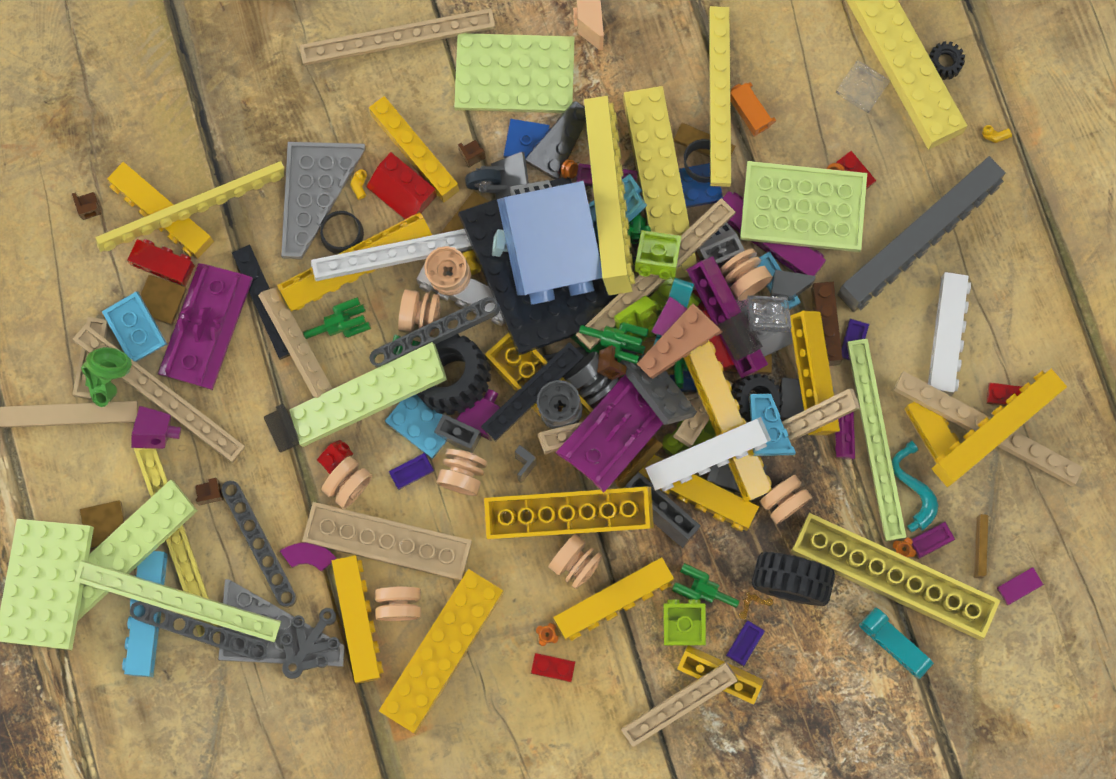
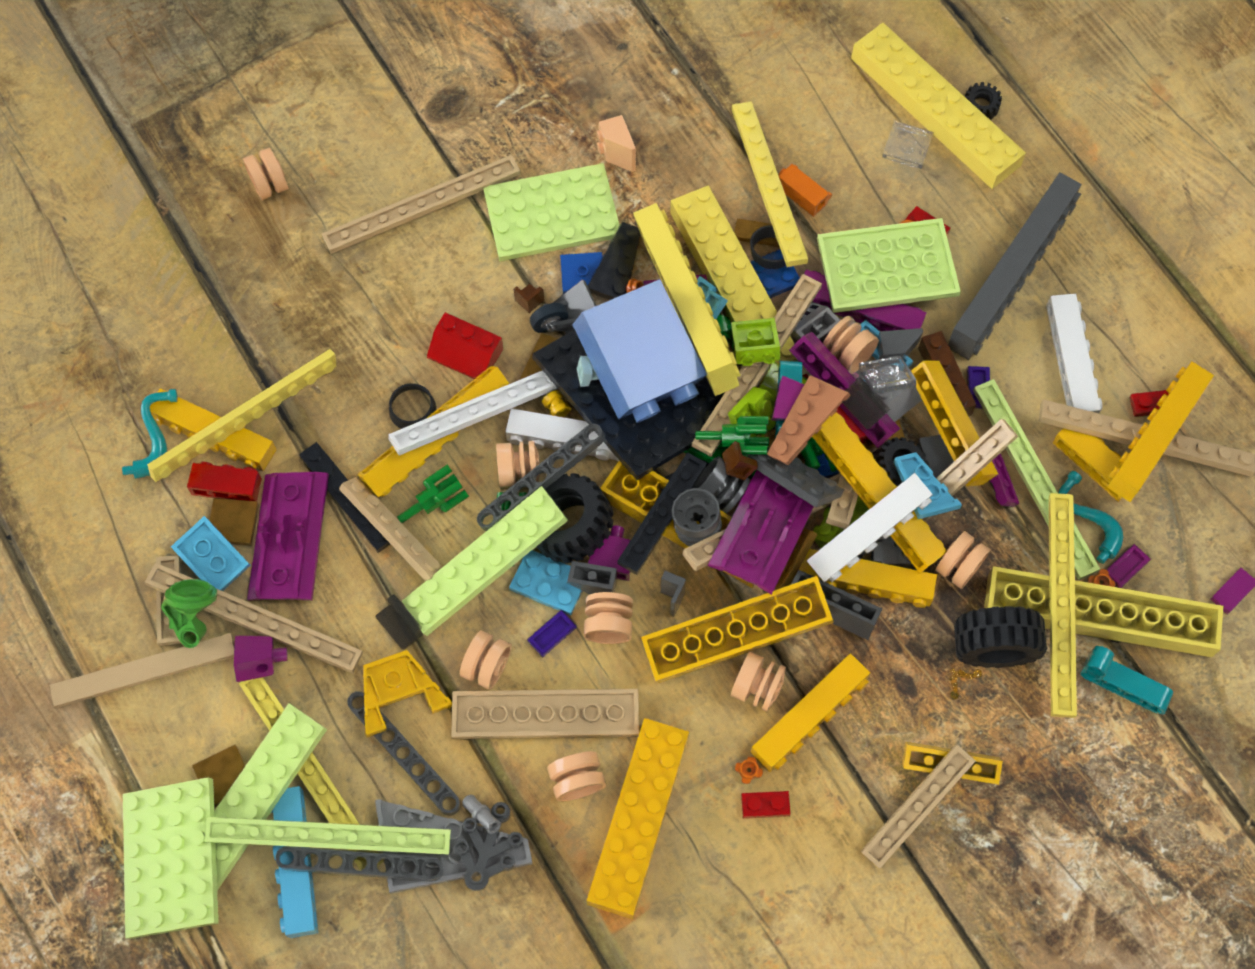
camera: 15 degrees left, 10 degrees down
(86, 205) = (130, 444): reddish brown panel -> none
(110, 218) = (159, 445): none -> teal animal
(209, 492) = (334, 711): reddish brown panel -> none
(265, 479) = (392, 681): none -> yellow wing
(308, 554) = (462, 750): magenta tile -> none
(310, 614) = (481, 814): none -> light grey pin
(312, 186) = (369, 368): light grey wing -> none
(334, 455) = (462, 636): red bracket -> none
(356, 619) = (534, 807): yellow brick -> none
(357, 183) = (416, 354): yellow arm -> none
(413, 148) = (467, 305): yellow brick -> none
(444, 260) = (532, 402): light nougat wheel -> none
(684, 623) = (895, 718): lime plate -> none
(702, 587) = (901, 675): green plant -> none
(745, 643) = (966, 724): dark purple tile -> none
(857, 563) = (1062, 606): none -> light yellow plate
(981, 546) = (1180, 559): pearl gold tile -> none
(994, 136) = (1052, 160): yellow arm -> none

